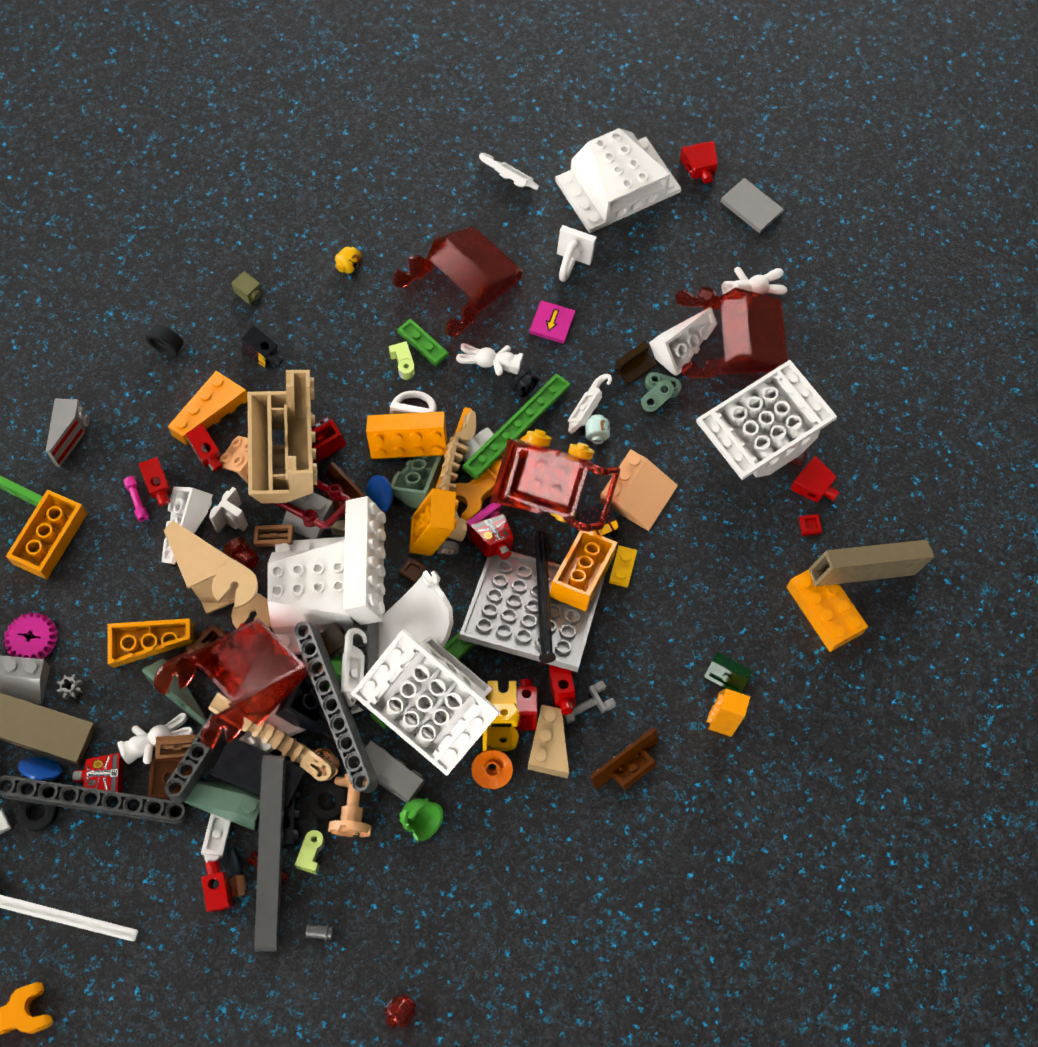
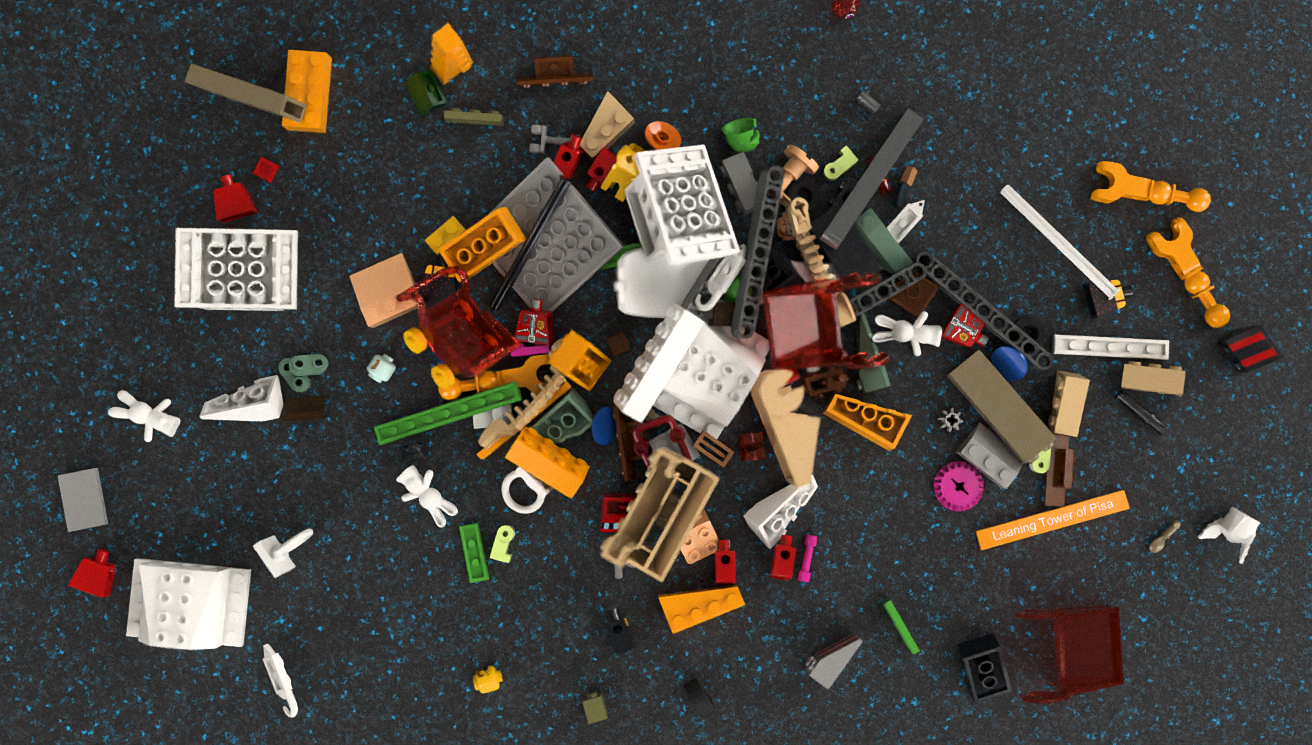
camera: 140 degrees left, 20 degrees up
(47, 534) = (899, 568): light orange brick -> none
(175, 743) = (895, 313): medium nougat tile -> none
(217, 898) = (928, 177): red torso -> none
(228, 512) = (738, 484): white bracket -> none
(472, 265) = (381, 597): clear red piece -> none
(552, 322) = (347, 498): dark pink tile -> none
(587, 404) = (373, 397): white plate -> none
(670, 678) = (474, 117): none -> olive plate
(750, 329) = (182, 369): clear red piece -> none

